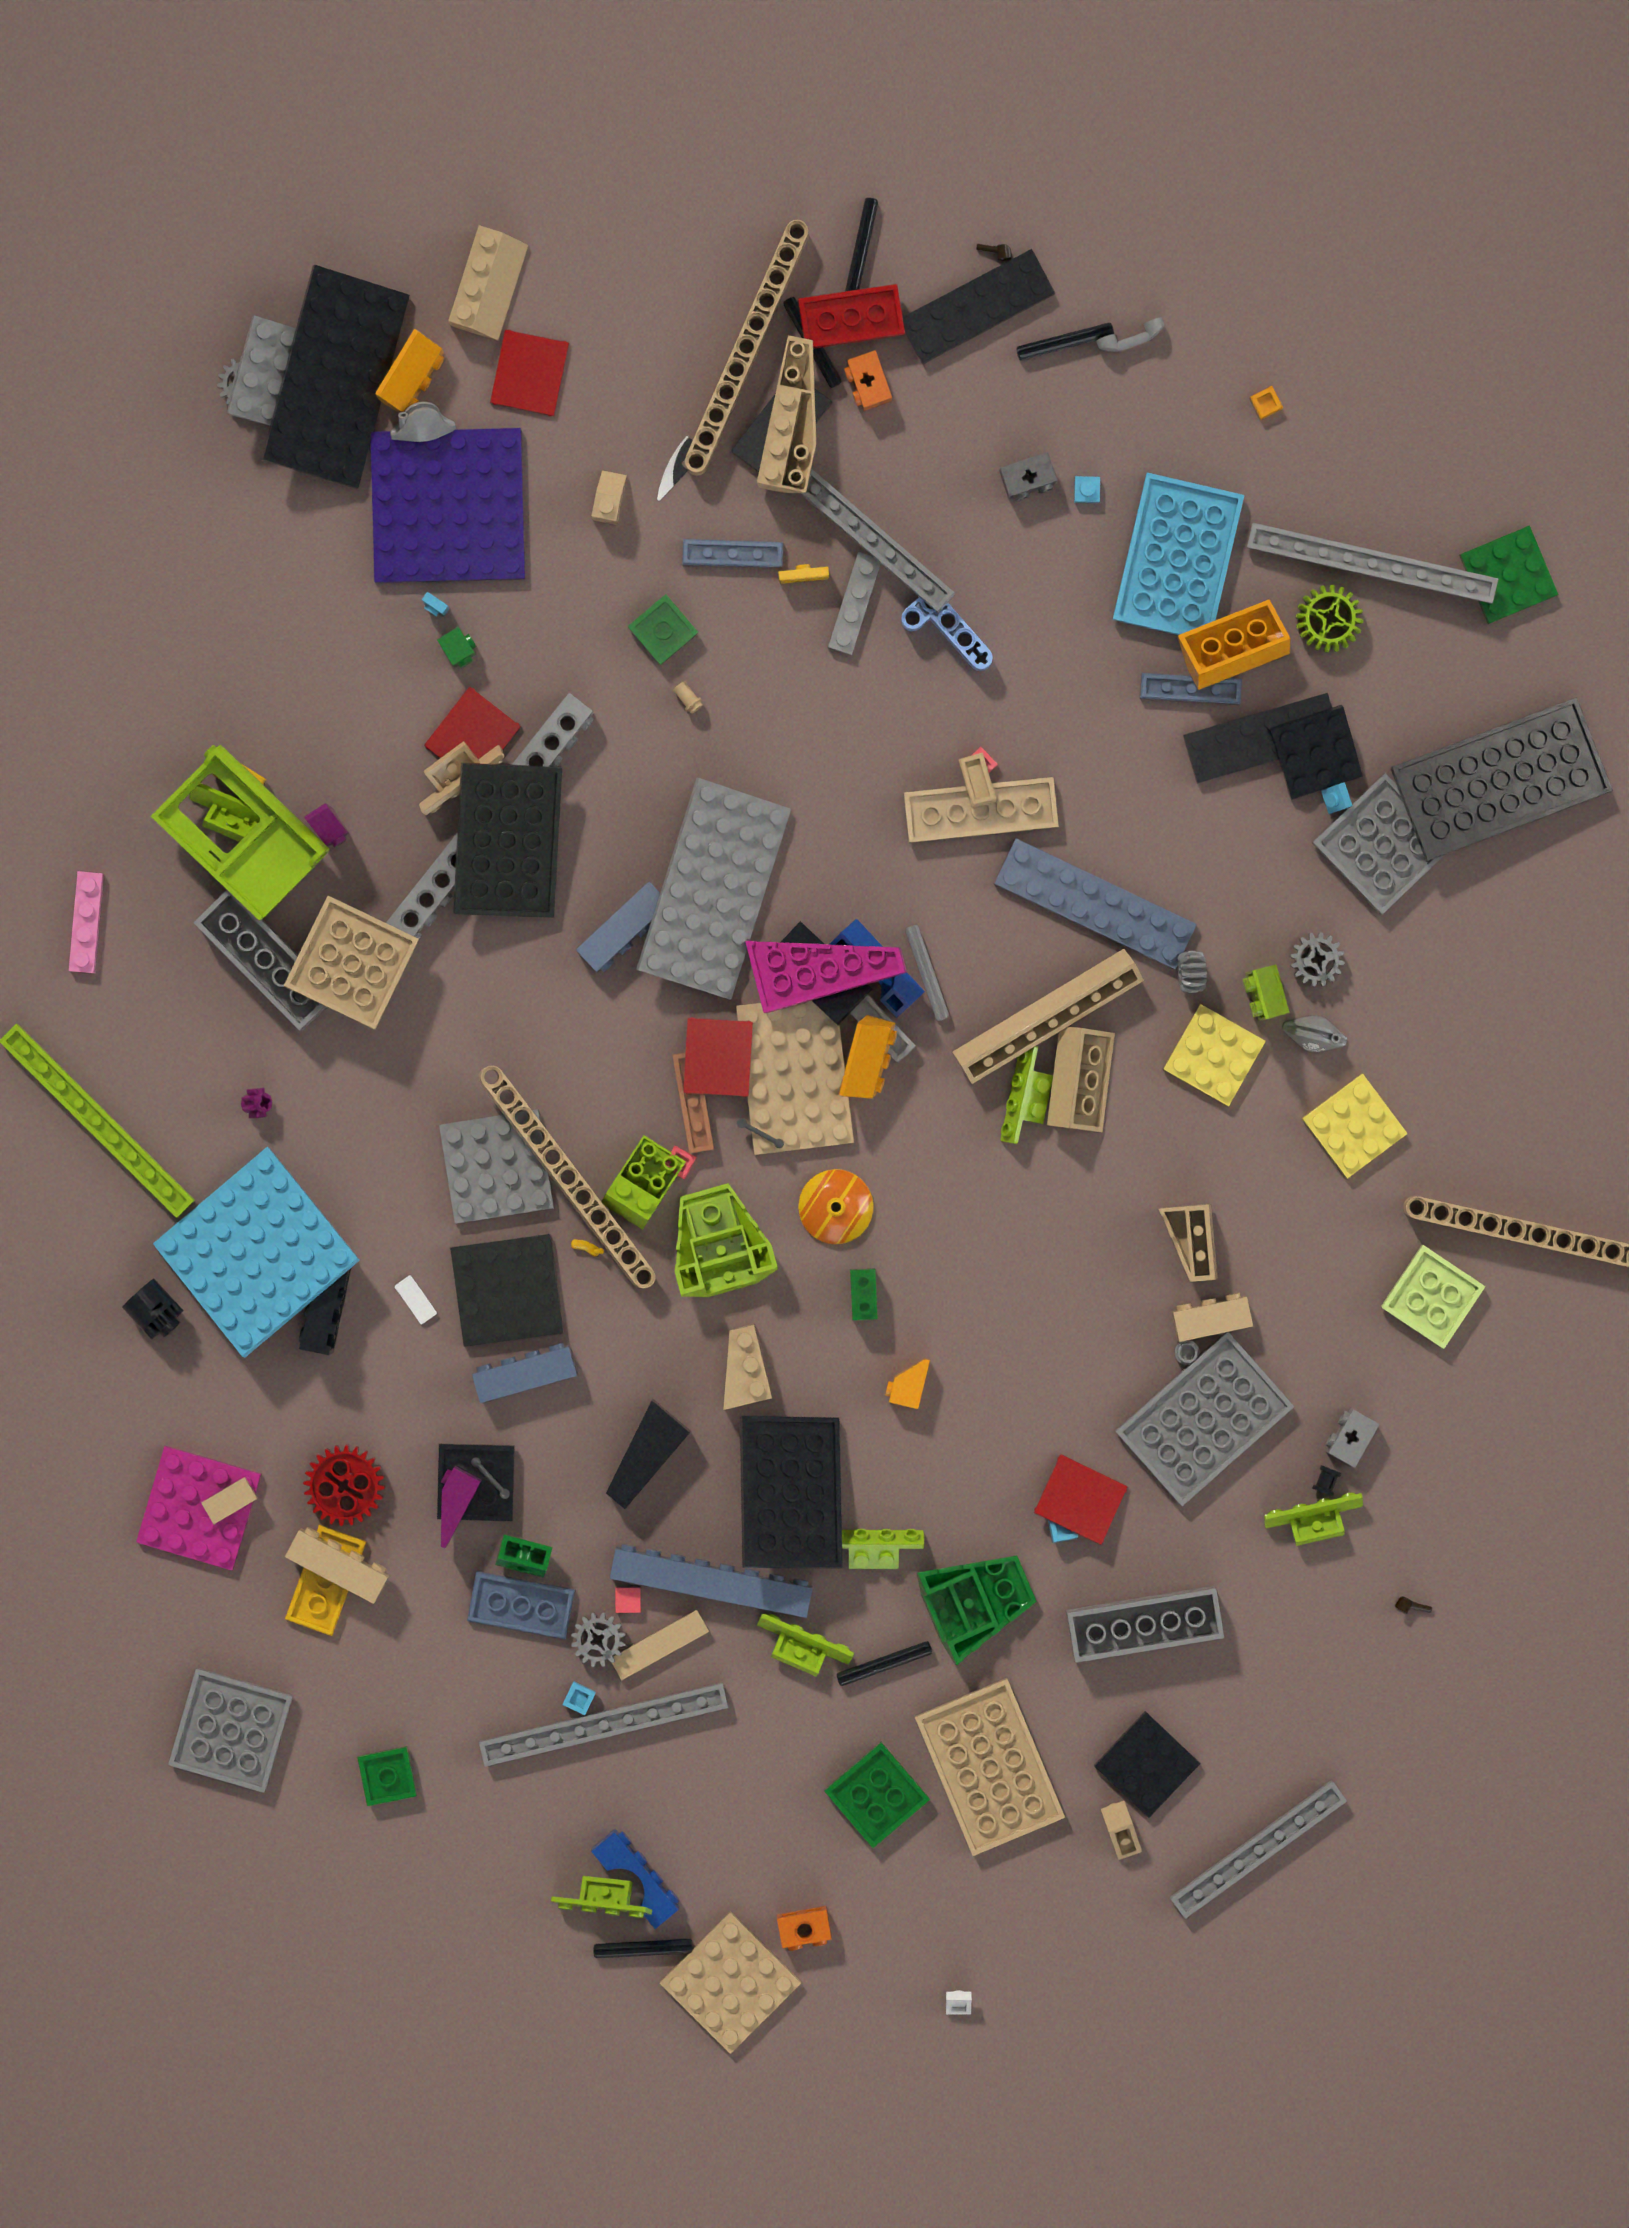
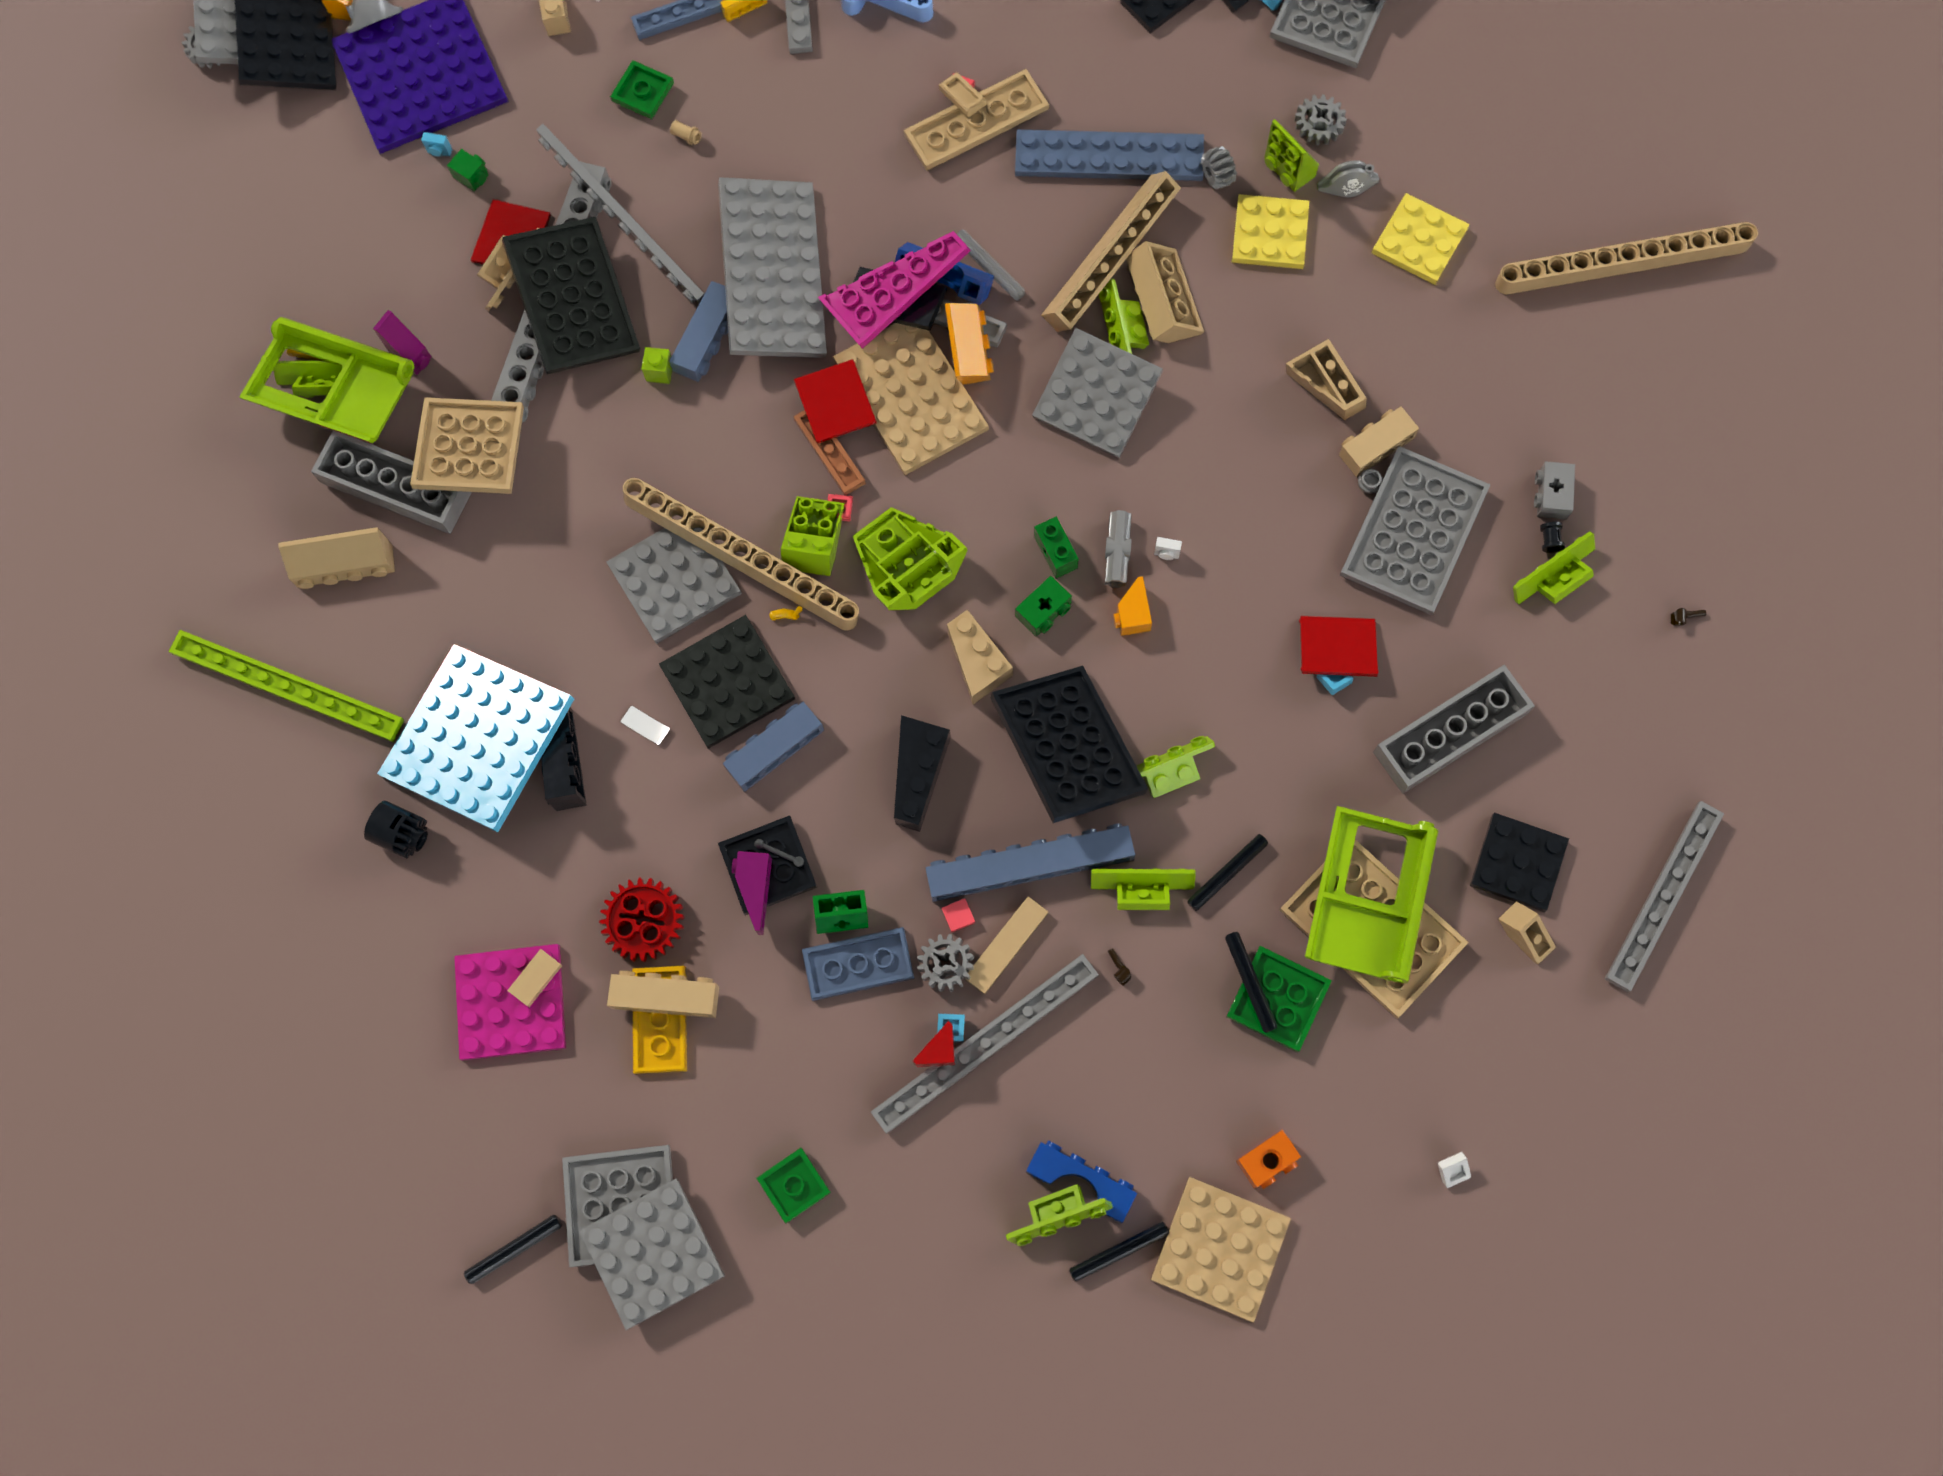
camera: 15 degrees left, 15 degrees down
(86, 922) = (218, 522): bright pink plate -> none
(124, 1727) = (512, 1249): none -> black axle
(188, 1018) = (337, 557): none -> tan slope
(243, 1784) = (651, 1254): none -> light grey plate
(256, 1103) = (429, 608): magenta gear -> none
(559, 1718) = (939, 1050): none -> red slope
(563, 944) = (657, 365): none -> lime brick
(583, 765) = (613, 208): none -> light grey plate
(742, 1123) = (880, 447): dark grey hinge -> none
(751, 1714) = (1123, 974): none -> dark brown hand
(812, 1346) = (1050, 594): none -> green brick
(833, 1187) = (997, 502): orange dish -> none
(857, 1772) = (1251, 982): none -> black axle
(921, 1319) = (1118, 549): none -> light grey piece
(966, 1340) = (1167, 548): none -> white plate
(970, 1156) = (1097, 392): none -> light grey plate
(974, 1601) = (1283, 777): green wedge -> none
(977, 1771) = (1363, 932): none -> lime piece
(1432, 1296) = (1562, 345): yellowish green plate -> none

